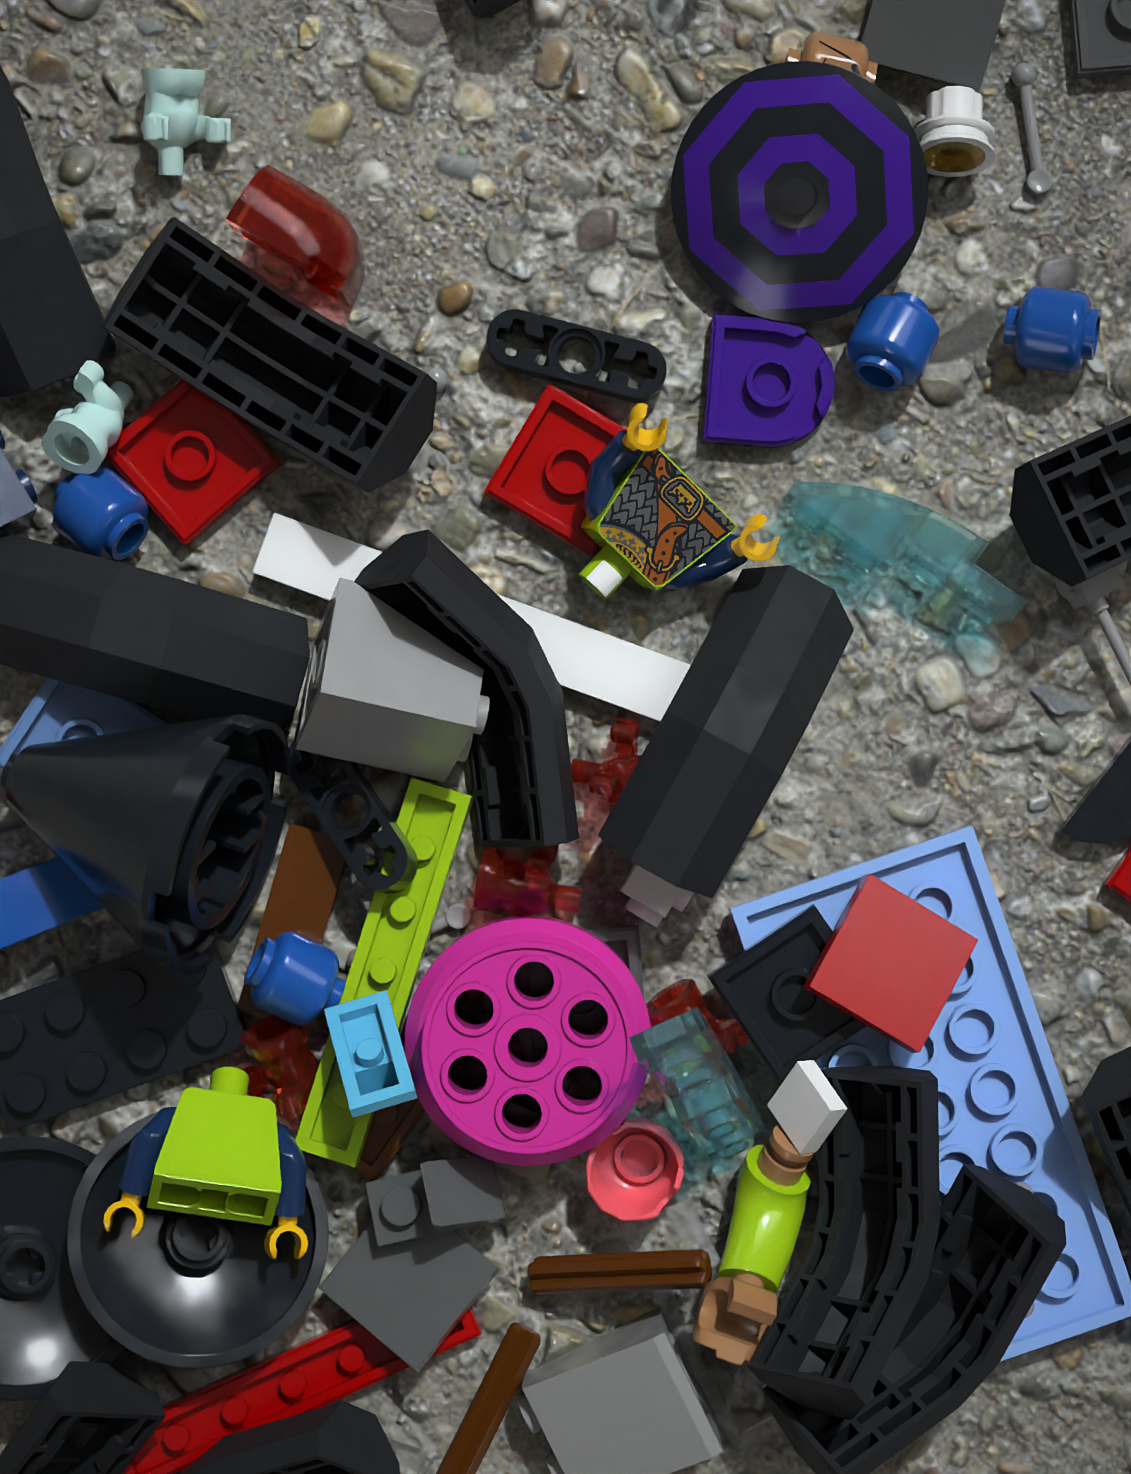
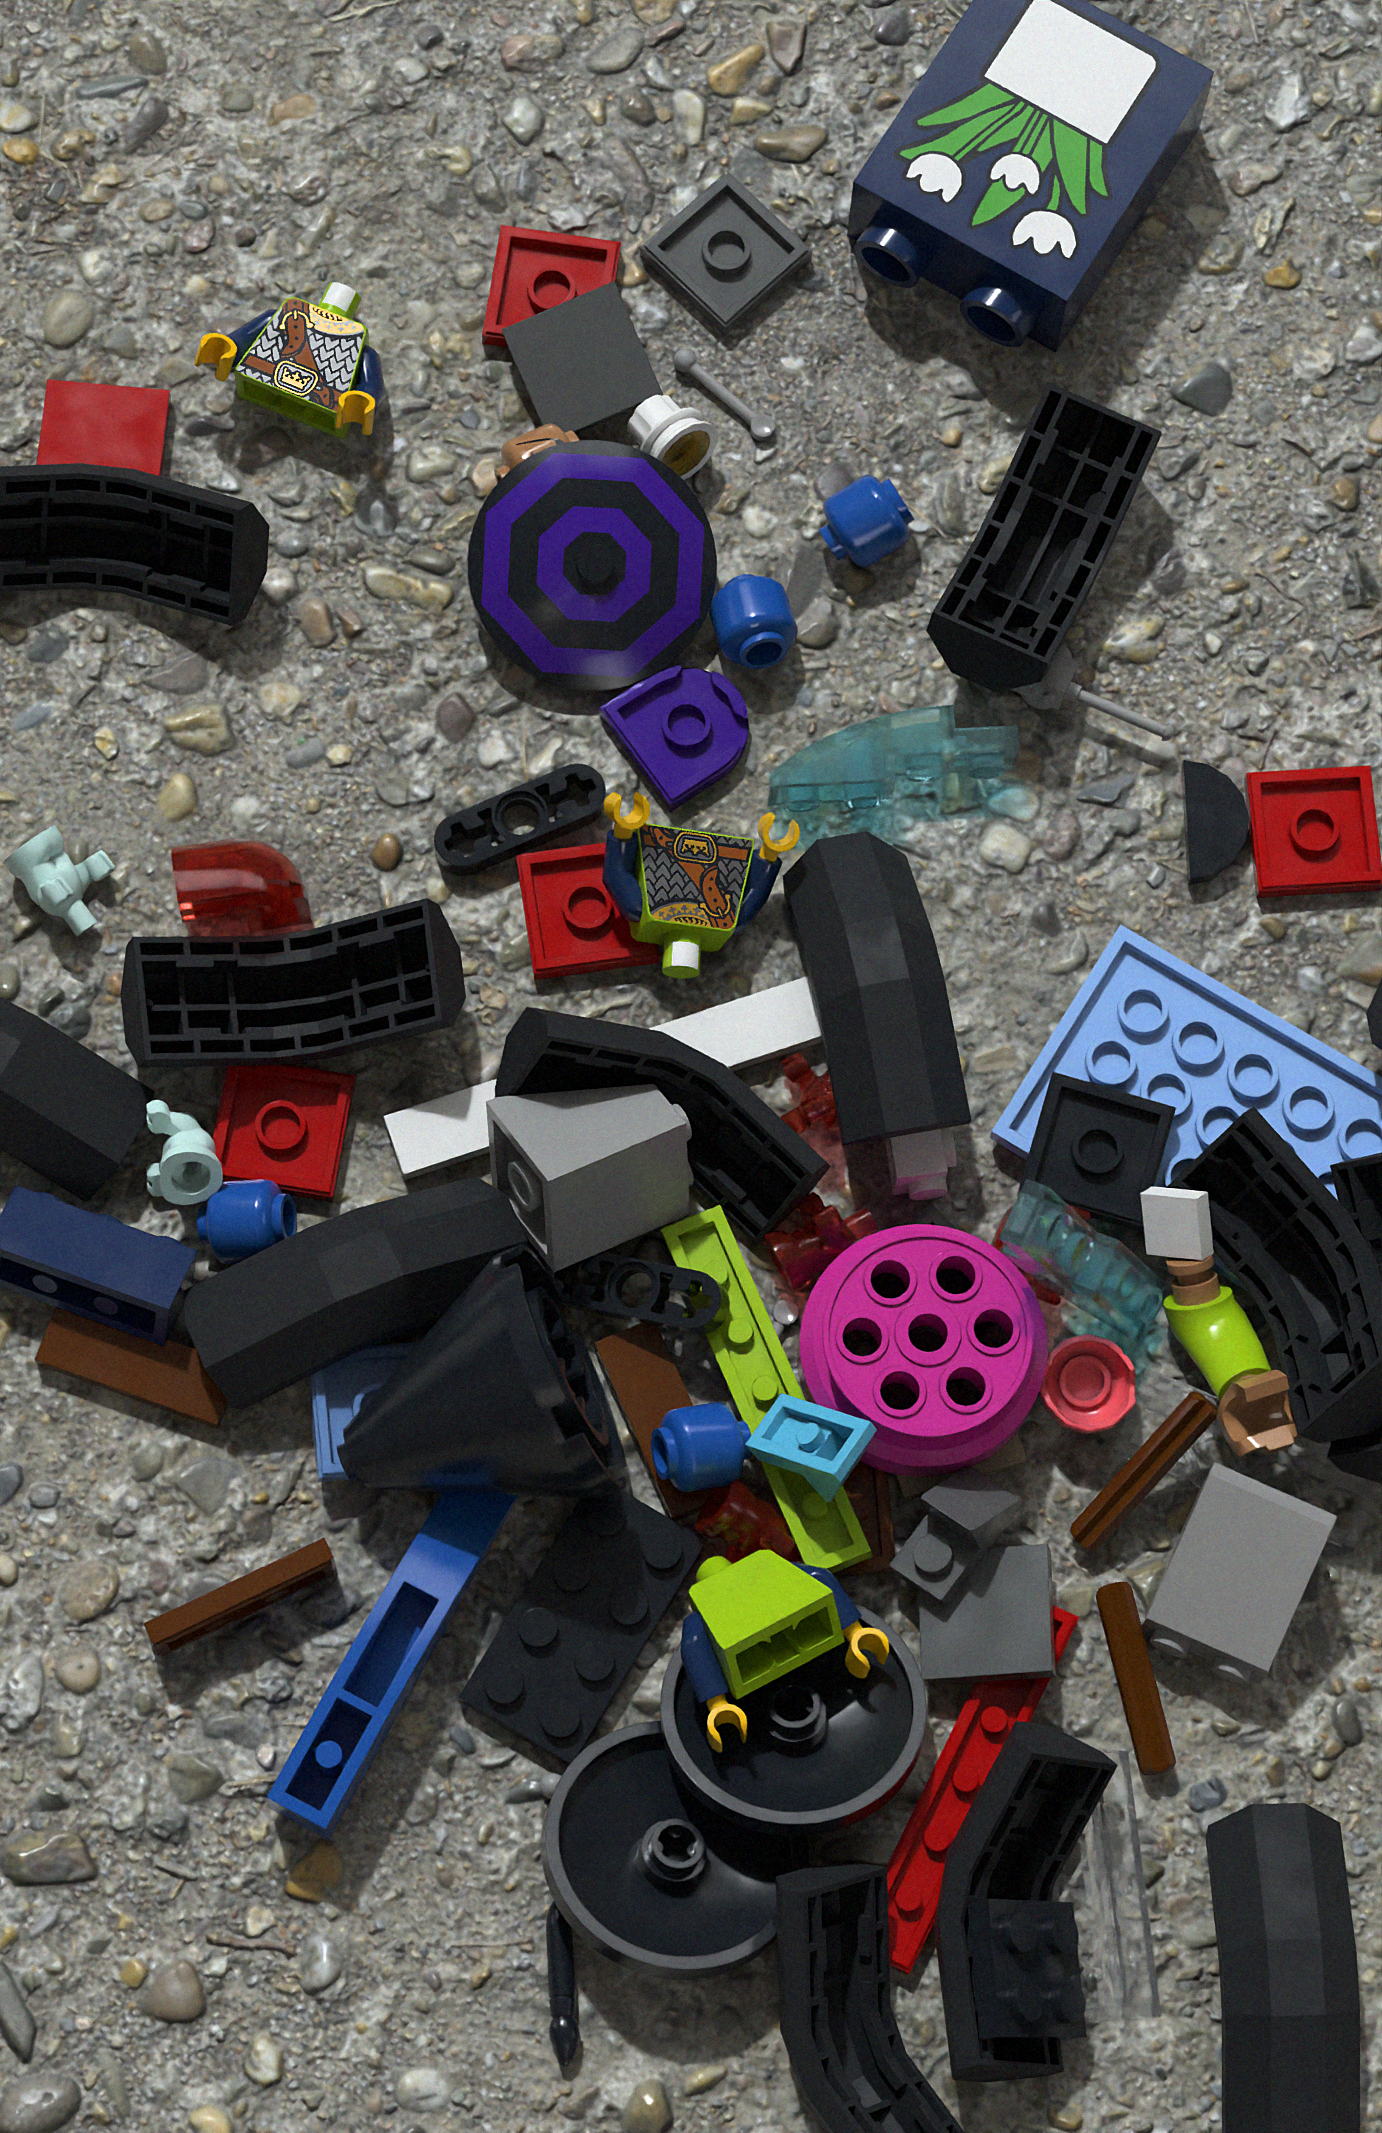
camera: 45 degrees left, 15 degrees down
(891, 963) = (1147, 1066): red tile -> none

